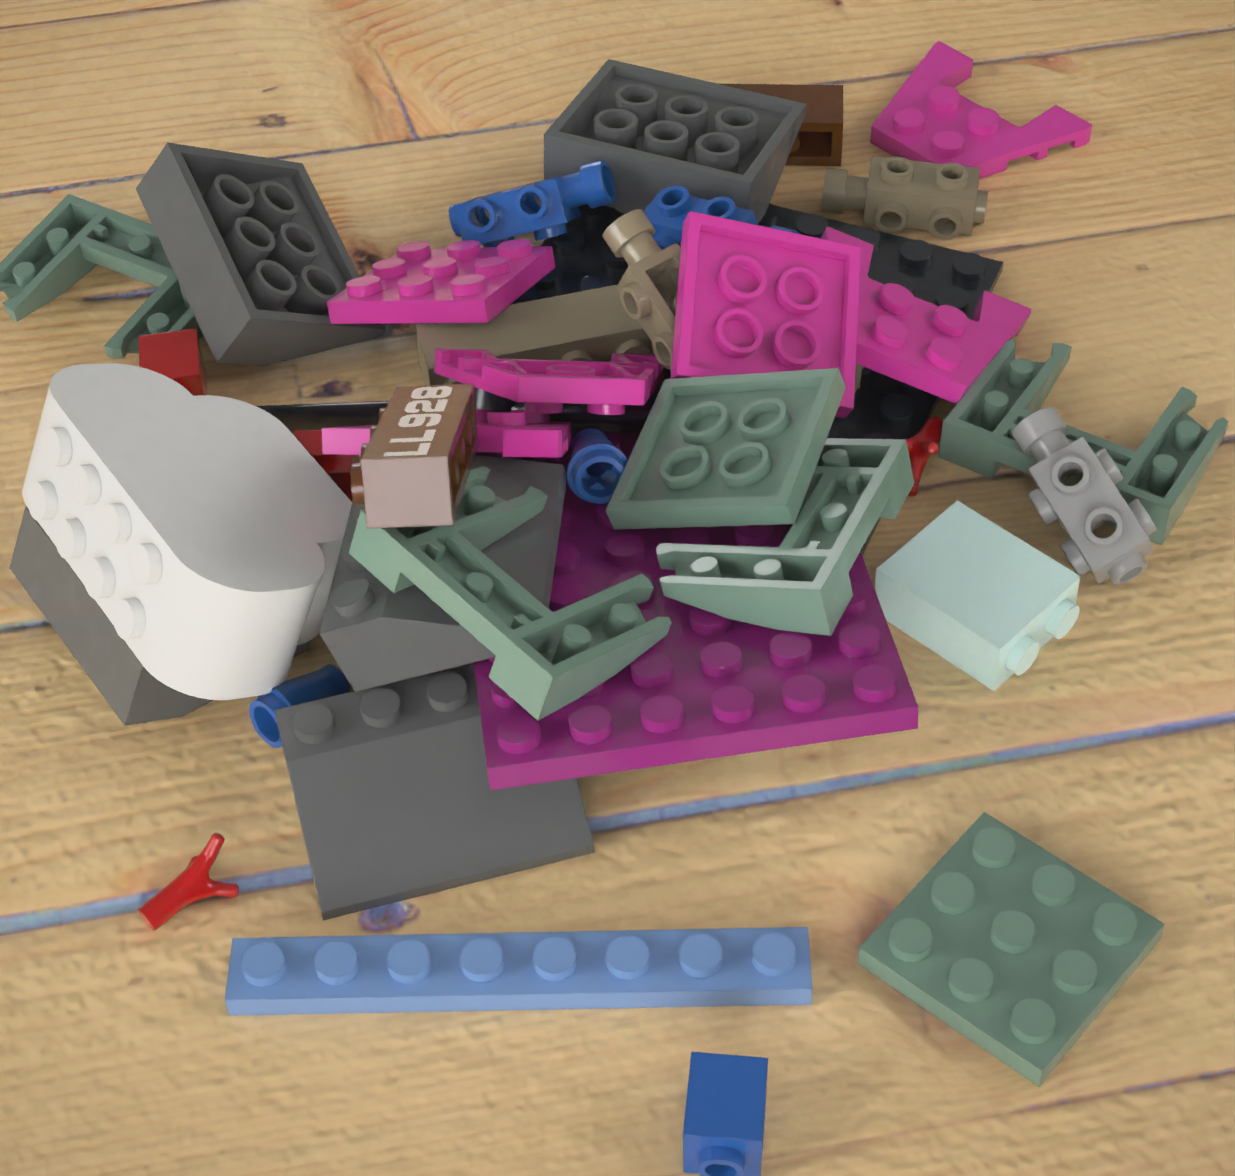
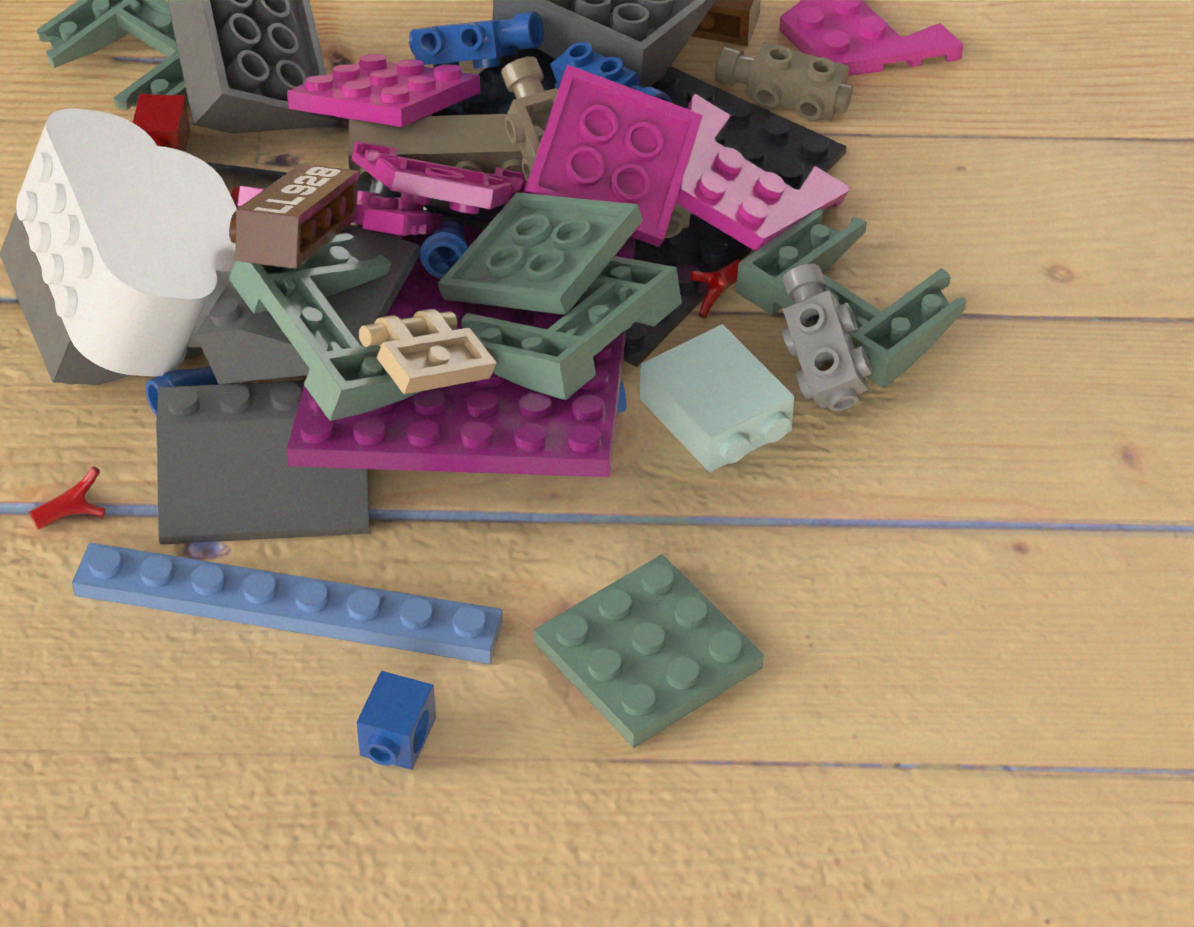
camera: 10 degrees right, 0 degrees up
(640, 605) = (427, 351): none -> tan plate

